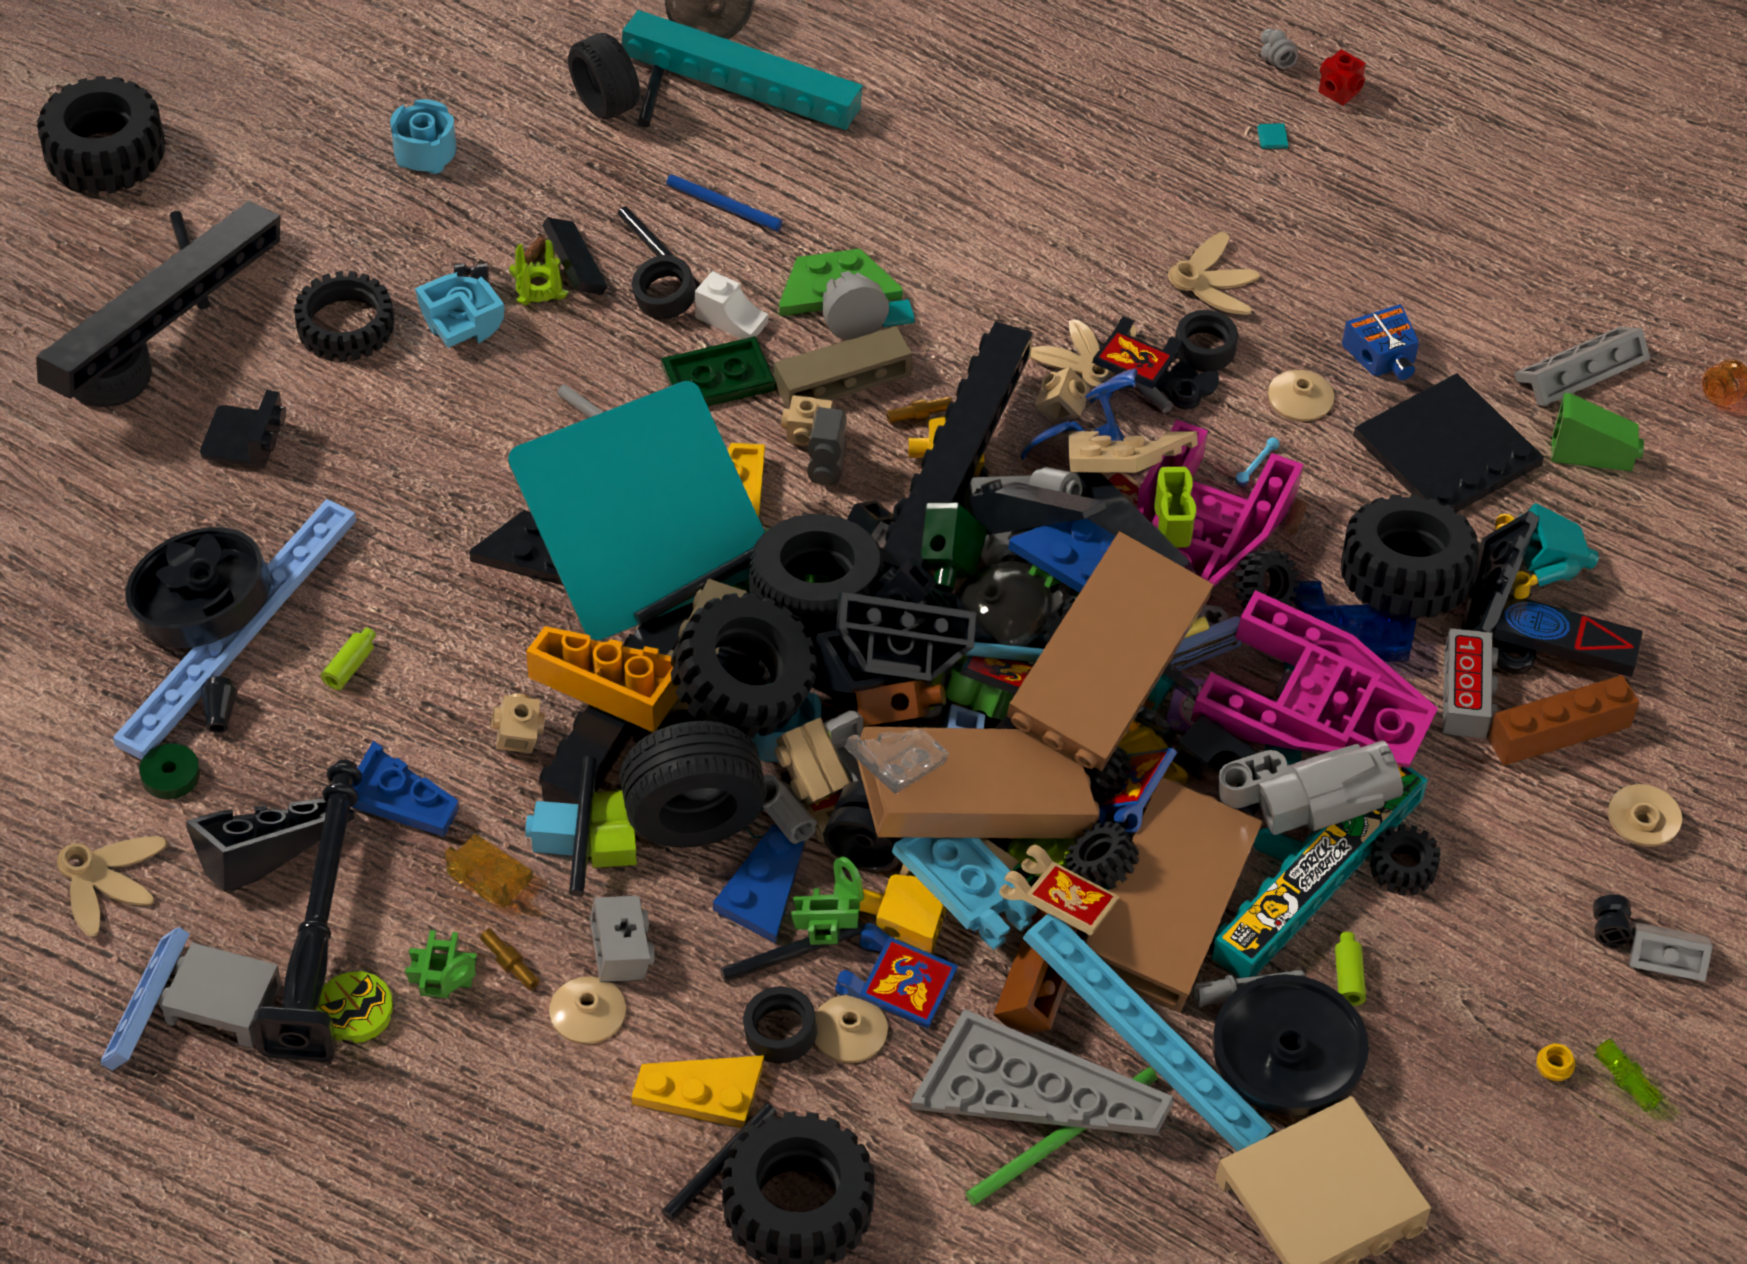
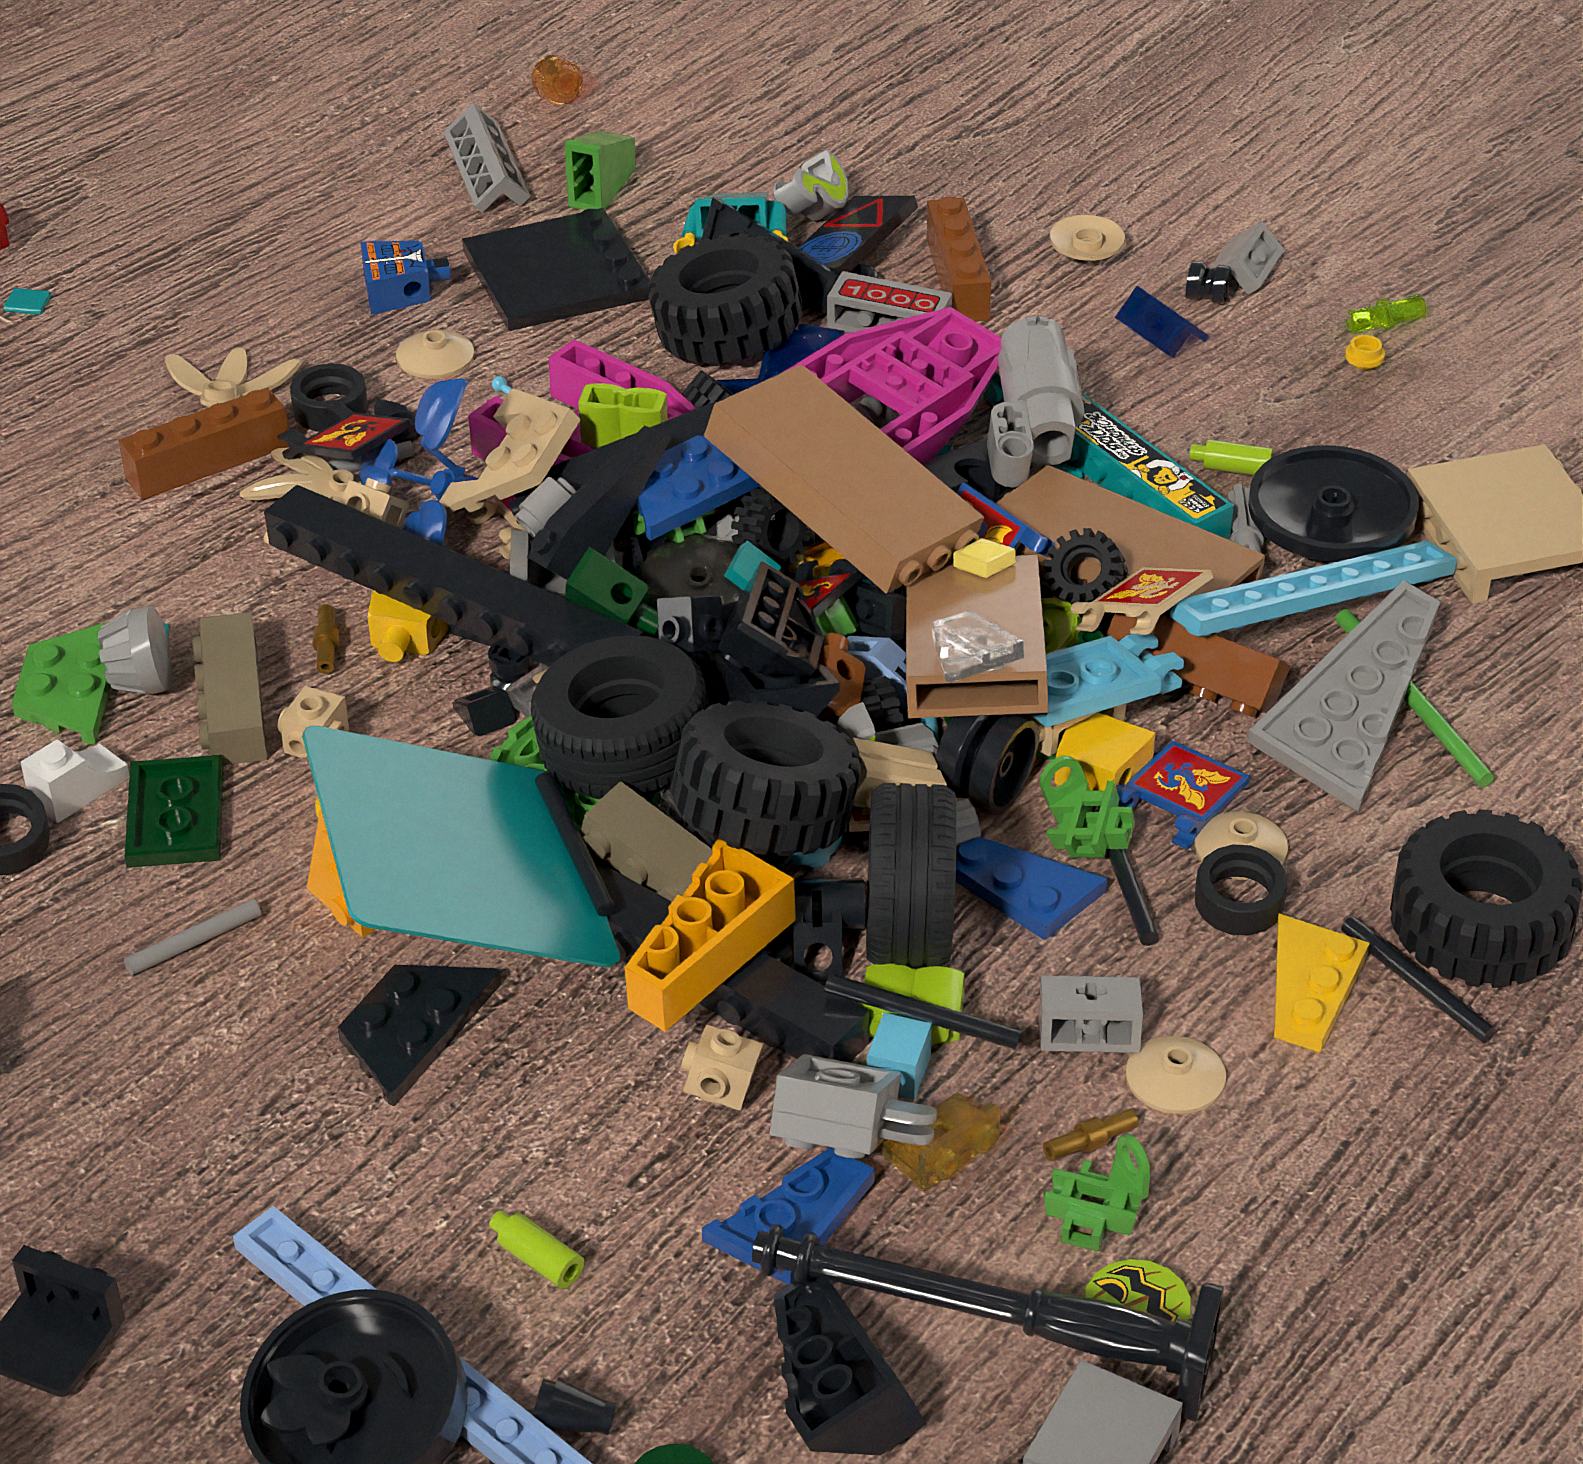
camera: 75 degrees left, 10 degrees down
(481, 793) = (845, 1108): none -> light grey brick
(827, 446) = (374, 700): dark grey brick -> none
(1013, 627) = (745, 564): none -> teal tile
(1071, 774) = (984, 558): none -> light yellow tile
(1115, 280) = (203, 443): none -> dark orange brick
(1410, 843) = (1112, 389): black tyre -> none
(1540, 893) = (1157, 322): none -> clear blue panel
(1610, 600) = (815, 189): none -> light grey animal

